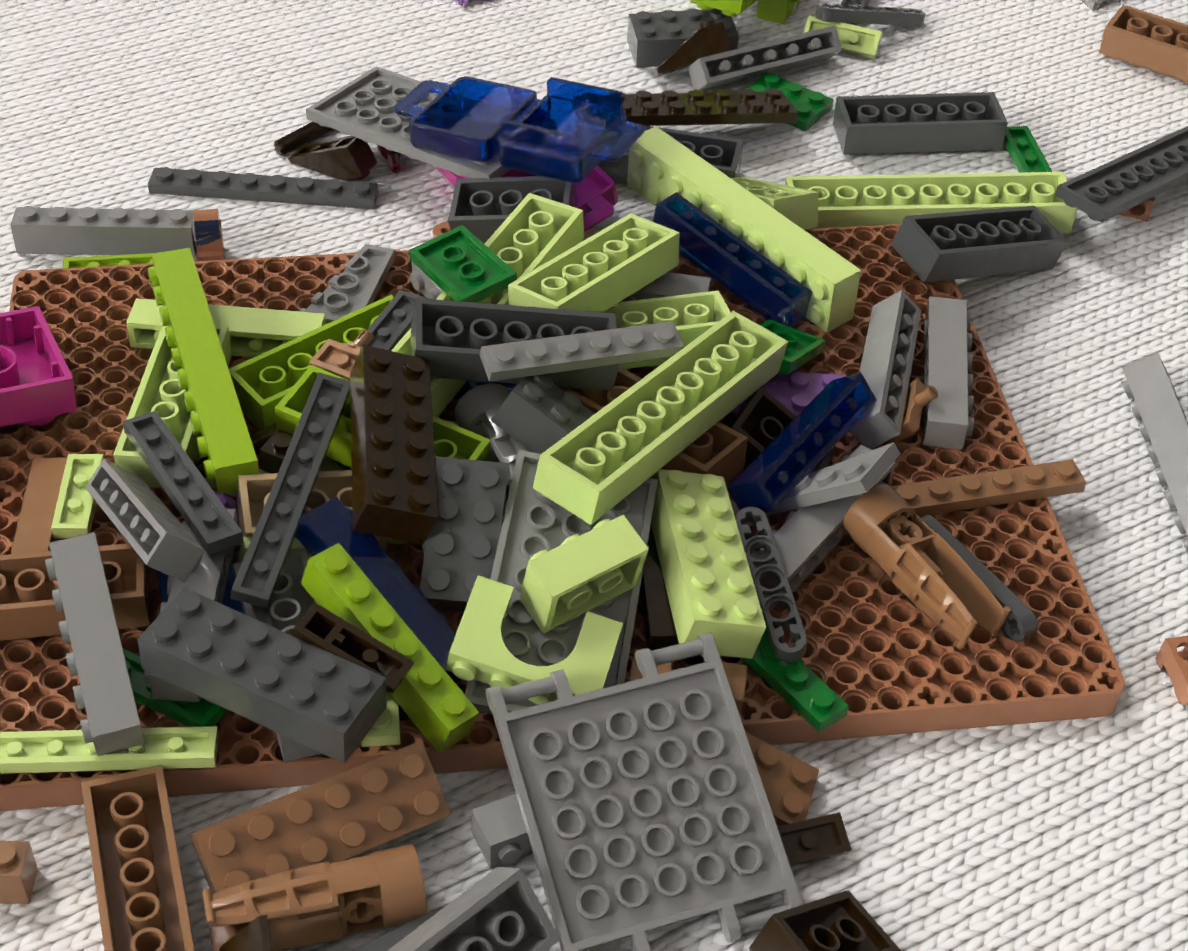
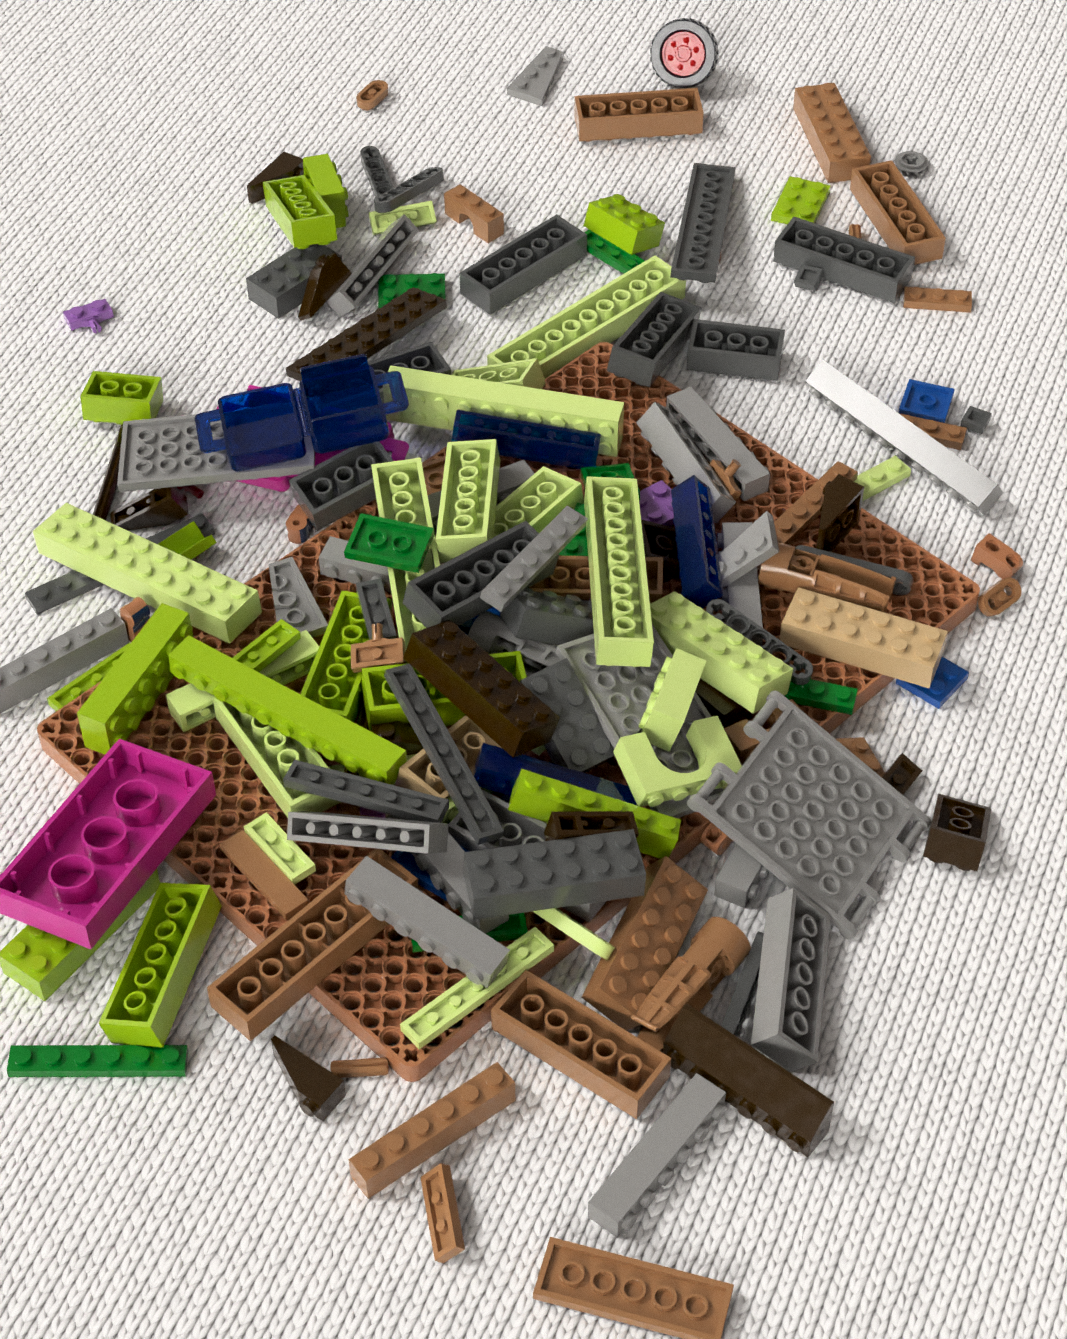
camera: 35 degrees left, 5 degrees up
(114, 272) = (133, 681): none -> lime brick
(245, 761) = (577, 932): none -> yellowish green beam
(257, 306) = (268, 646): none -> lime plate
(259, 201) = (147, 571): none -> yellowish green brick
(326, 199) = (188, 541): none -> lime panel
(411, 53) = (121, 397): none -> lime brick
(912, 656) = (863, 637): none -> tan brick
(917, 57) = (464, 204): none -> medium nougat arch
(974, 757) = (944, 684): none -> blue plate
(1003, 506) = (839, 511): none -> dark brown slope
(1064, 134) = (624, 224): none -> lime brick
(1071, 301) = (735, 349): none -> dark grey brick
(1116, 511) = (883, 476): none -> yellowish green plate
(1146, 715) = (998, 598): none -> medium nougat plate

